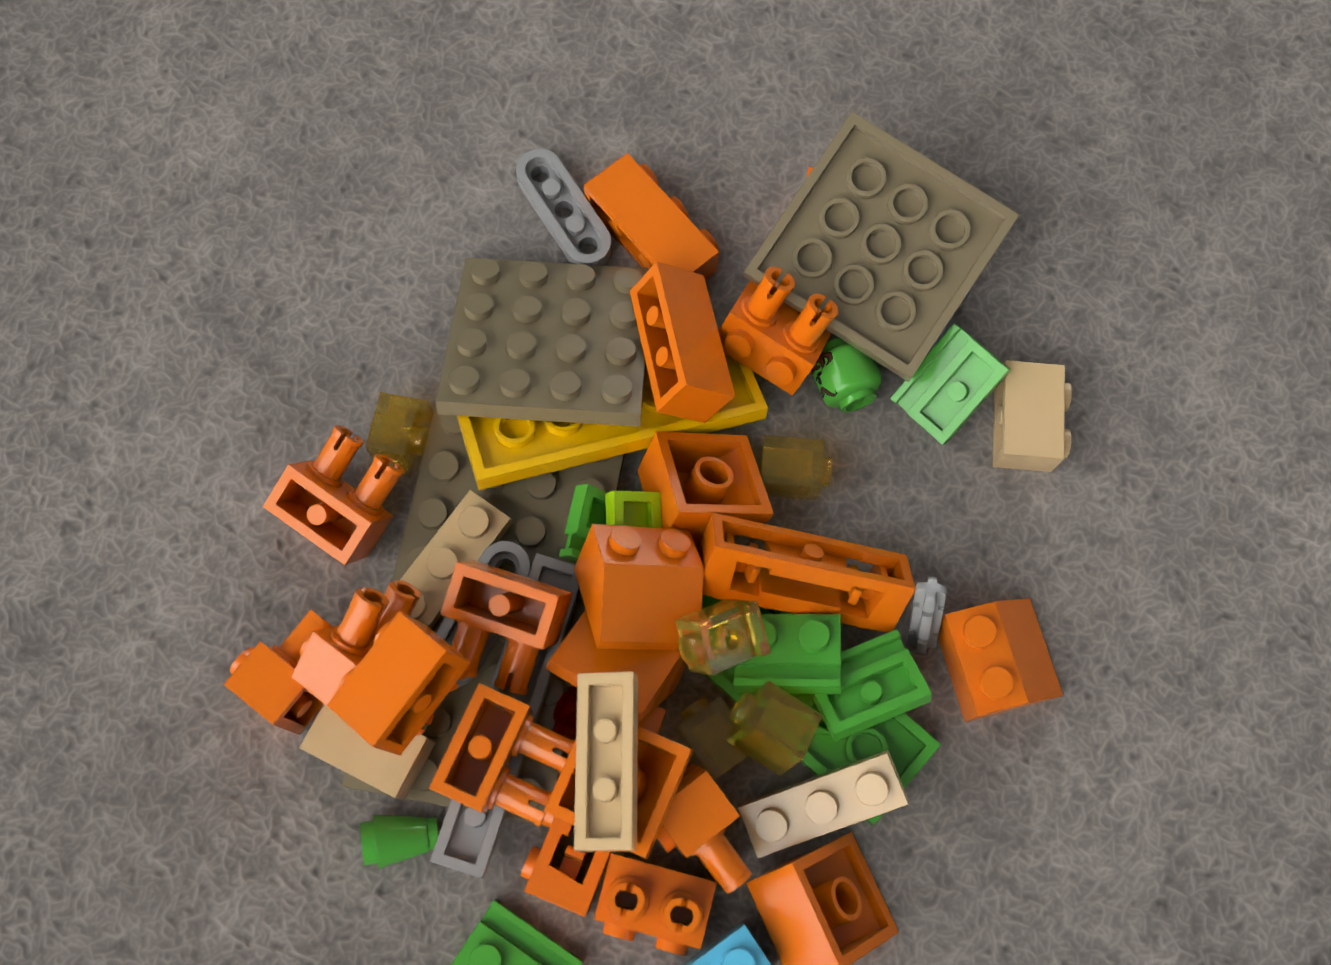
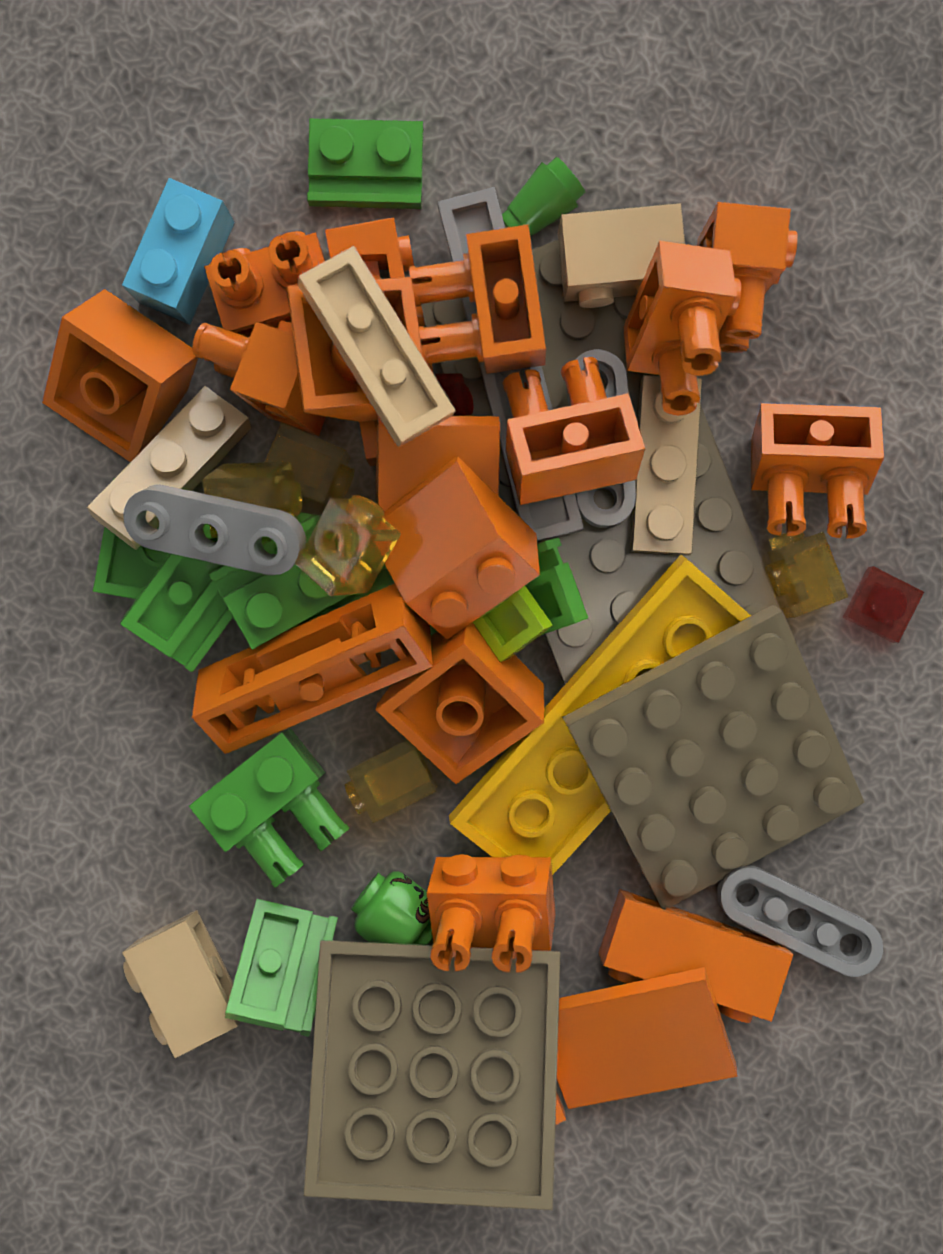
camera: 155 degrees right, 15 degrees up
(357, 380) = (883, 604): none -> clear red plate
(398, 684) = (617, 291): orange brick -> none
(681, 343) = (577, 833): orange brick -> none
(721, 192) = (641, 1039): none -> orange tile
(794, 705) = (237, 523): none -> light grey plate
(894, 516) = (272, 779): none -> bright green brick
(926, 614) = (171, 705): light grey axle -> none
(997, 658) = (83, 708): orange slope -> none

